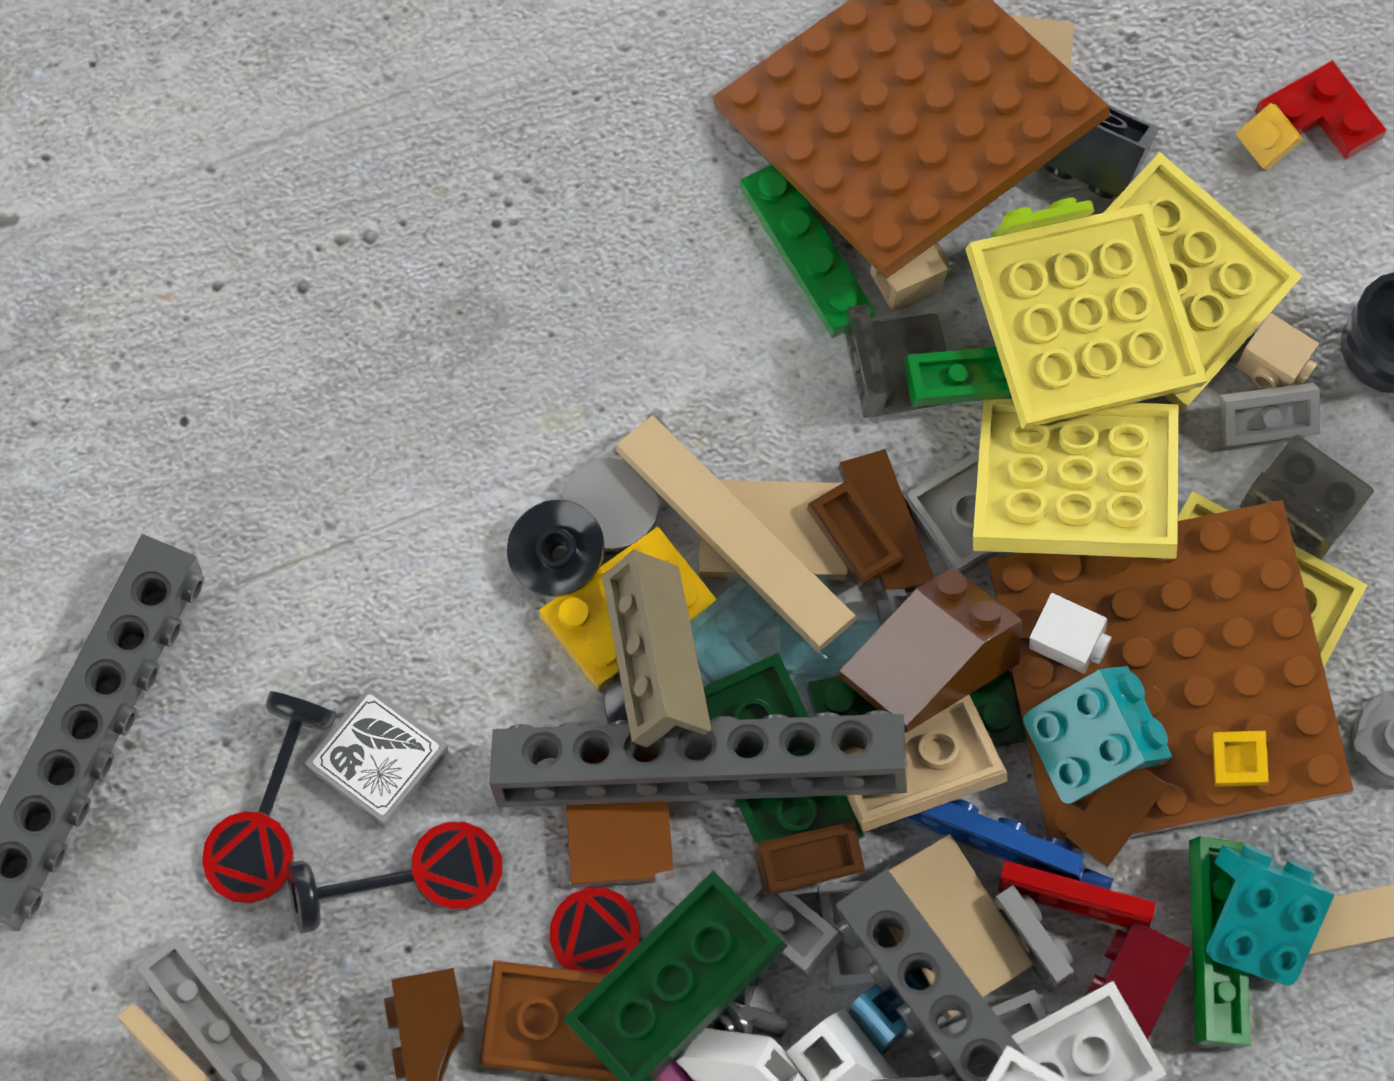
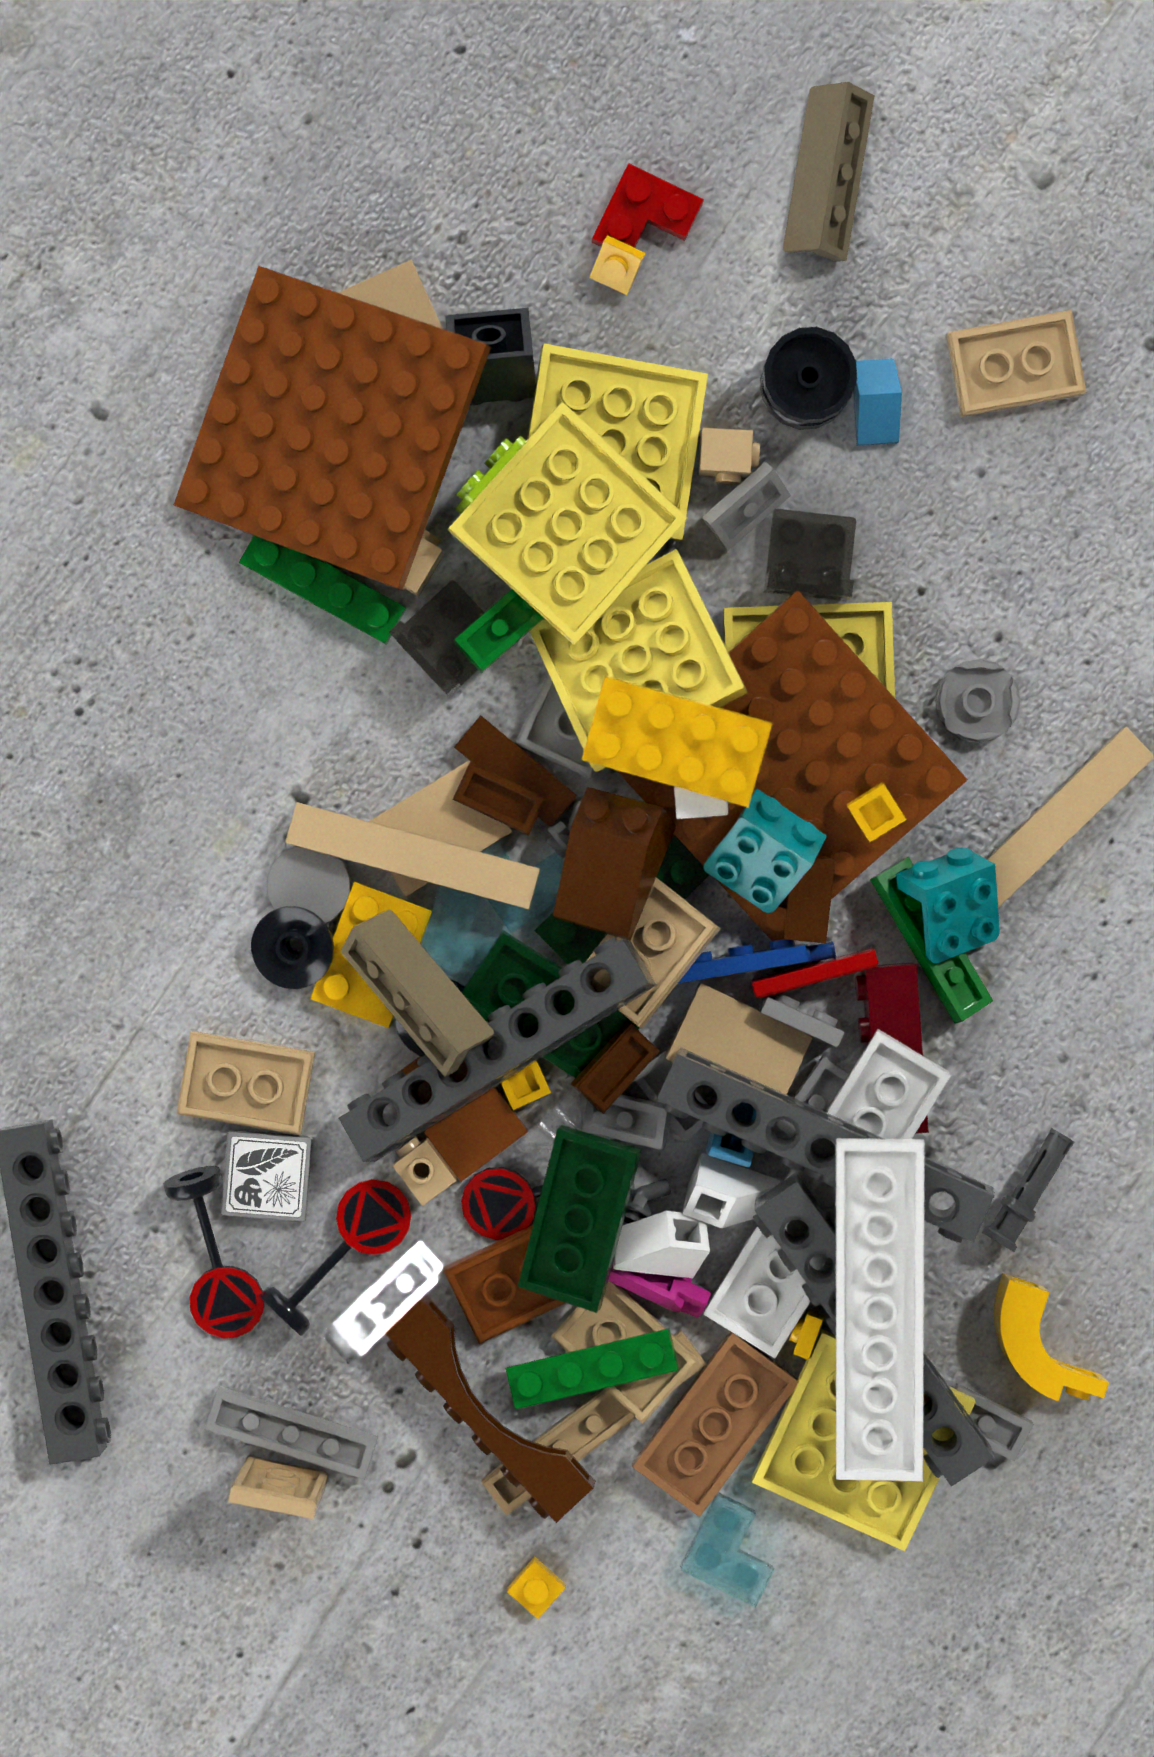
camera: 30 degrees left, 20 degrees up
(371, 955) = (383, 1303): none -> clear slope
(419, 654) = (246, 1082): none -> tan tile
(542, 845) = (423, 1169): none -> tan brick
(702, 825) = (526, 1086): none -> yellow plate
(1078, 557) = (676, 741): none -> yellow plate

